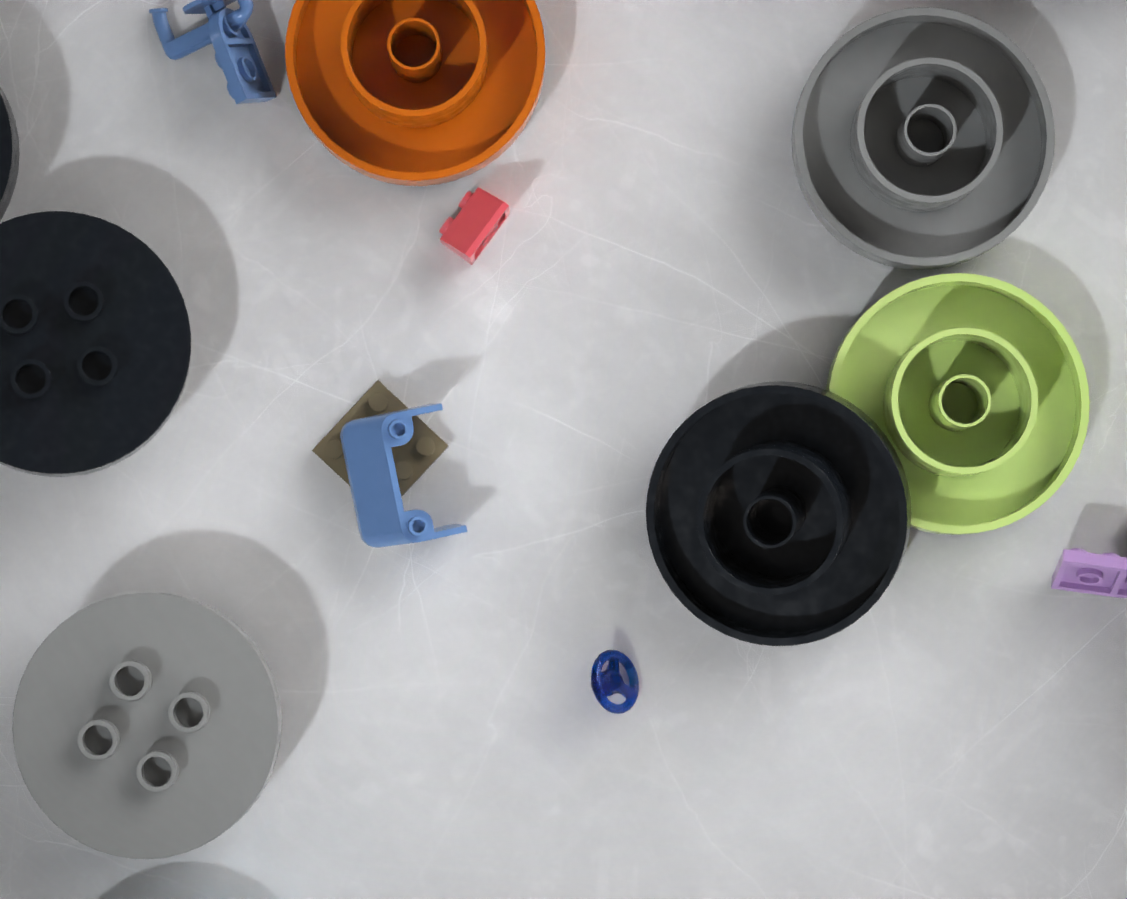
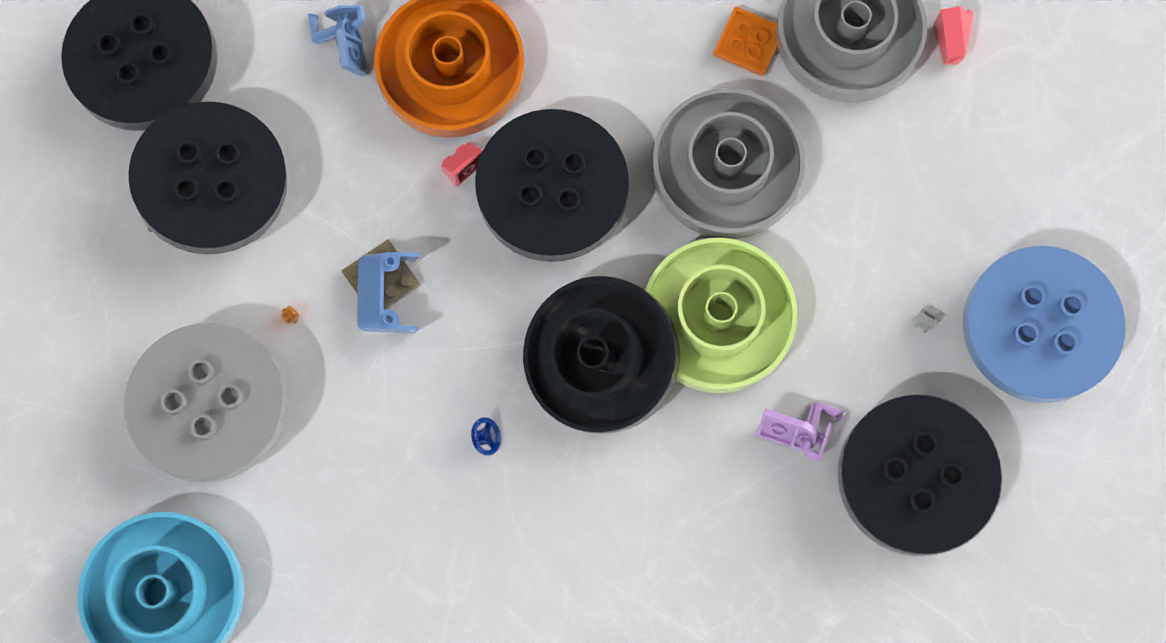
camera: 20 degrees right, 10 degrees down
(244, 543) = (290, 315): none -> clear orange plate
(637, 239) = (552, 185): none -> black piece

